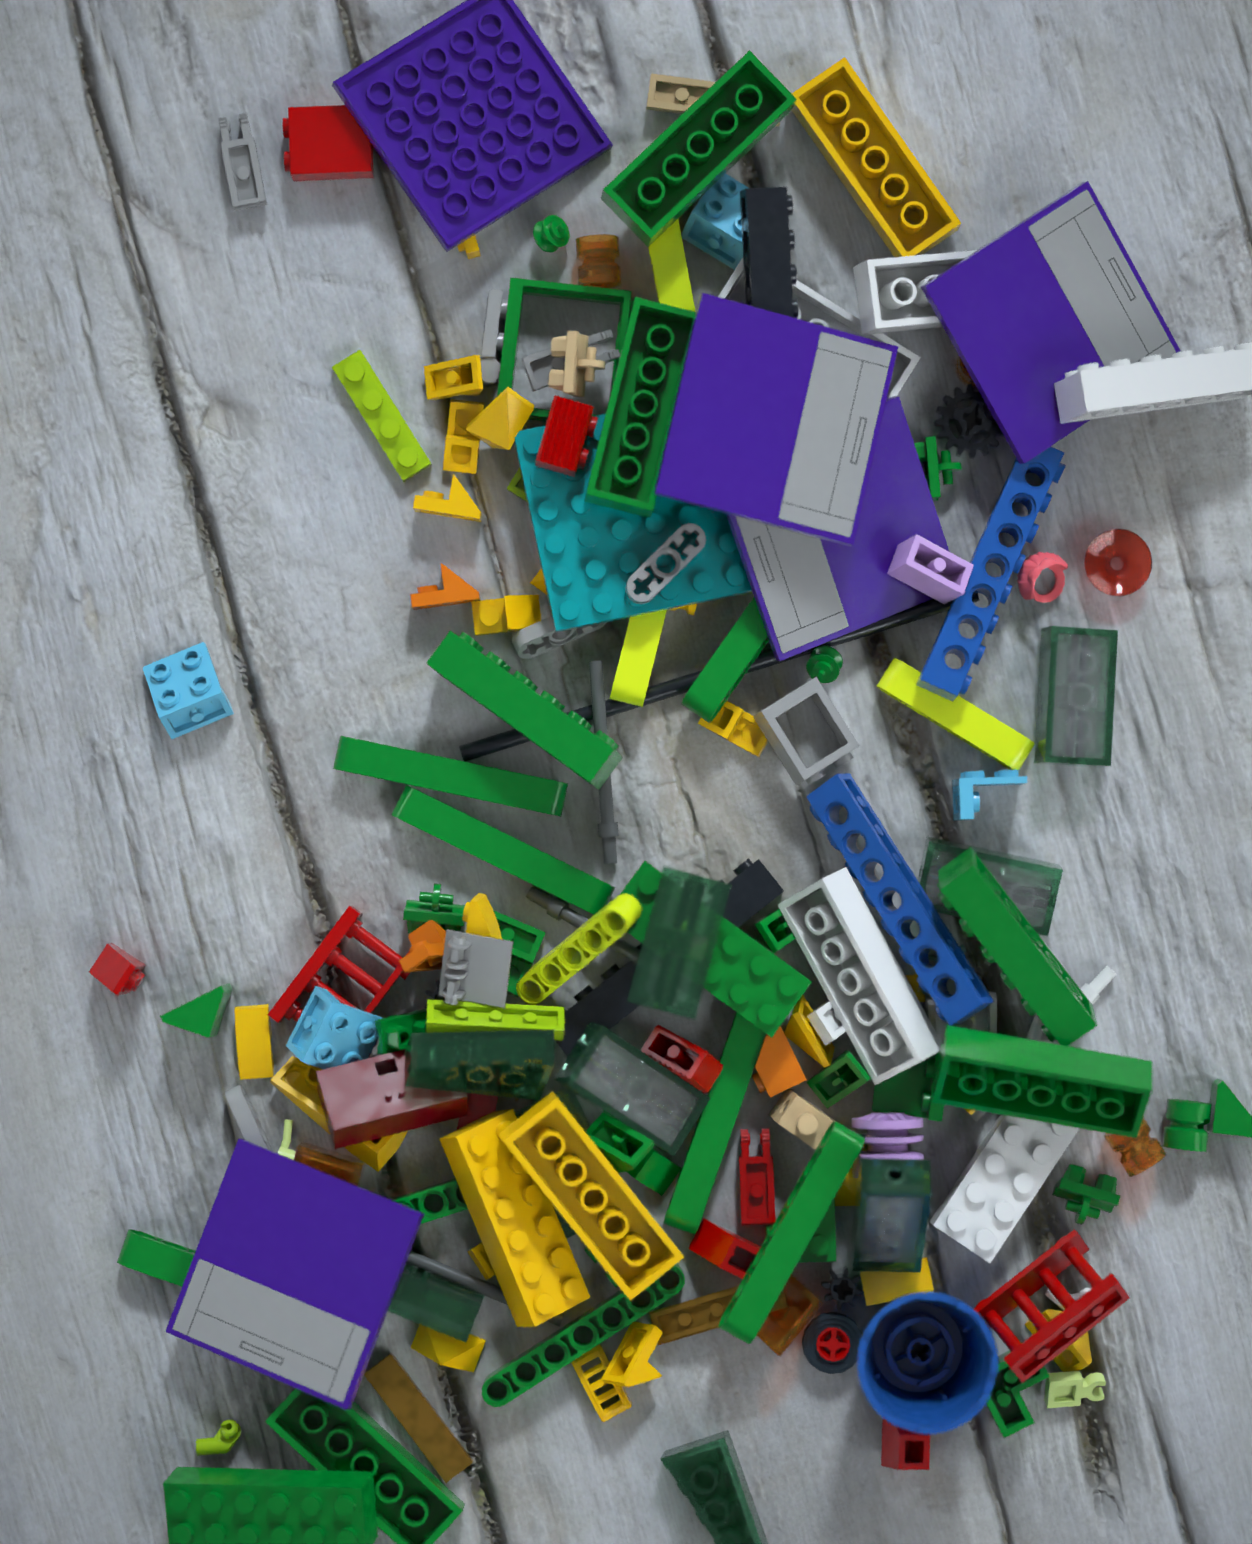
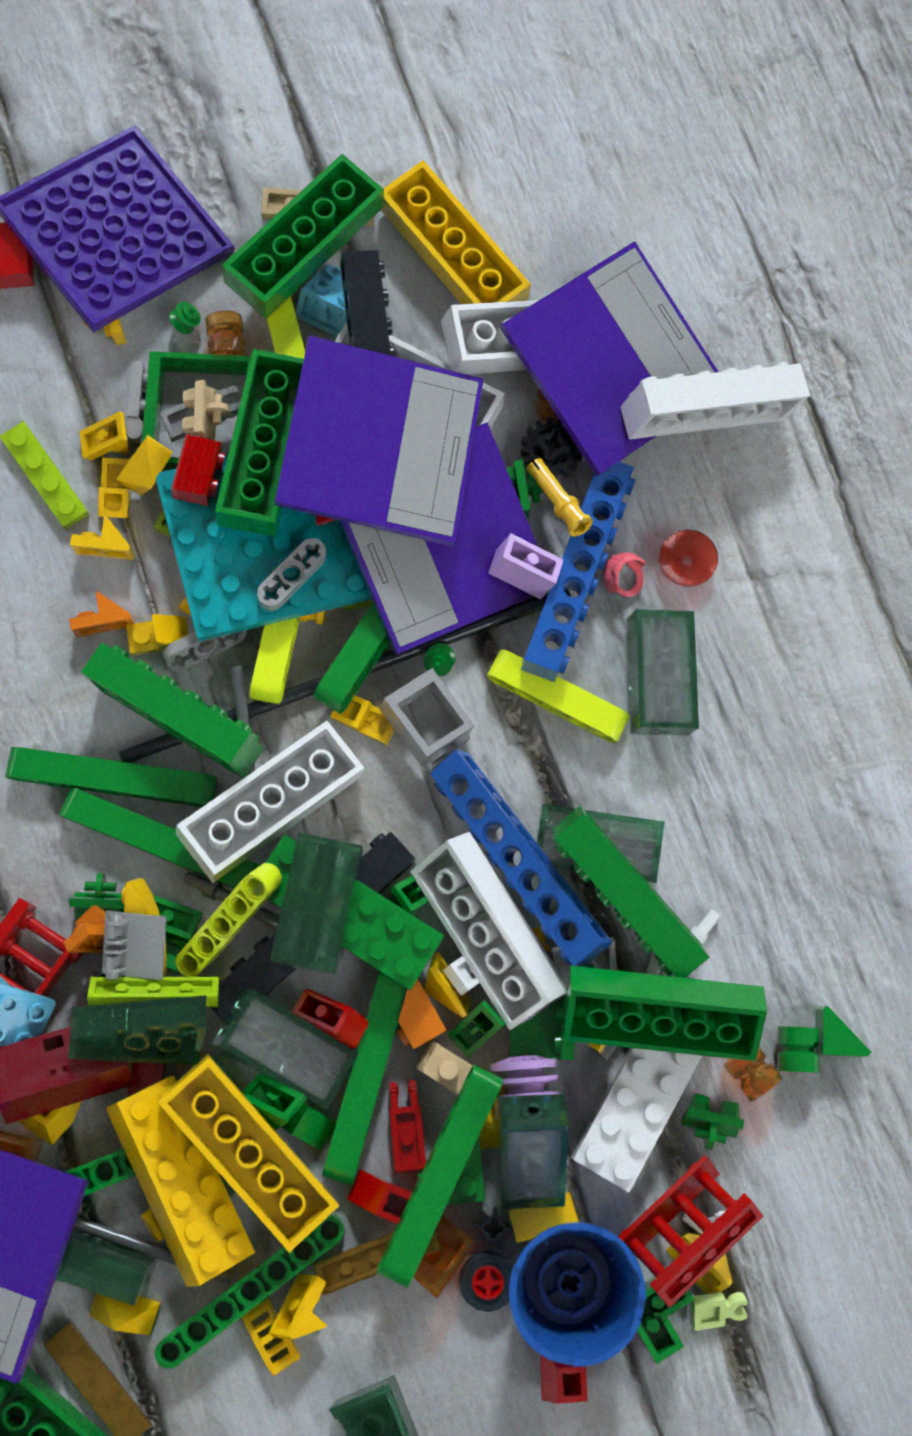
camera: 10 degrees left, 10 degrees down
(396, 1030) = (60, 1010): green hips -> none
(628, 818) = (269, 801): none -> white brick
(968, 802) = (578, 749): medium azure bracket -> none
(981, 500) = (565, 506): none -> yellow pin

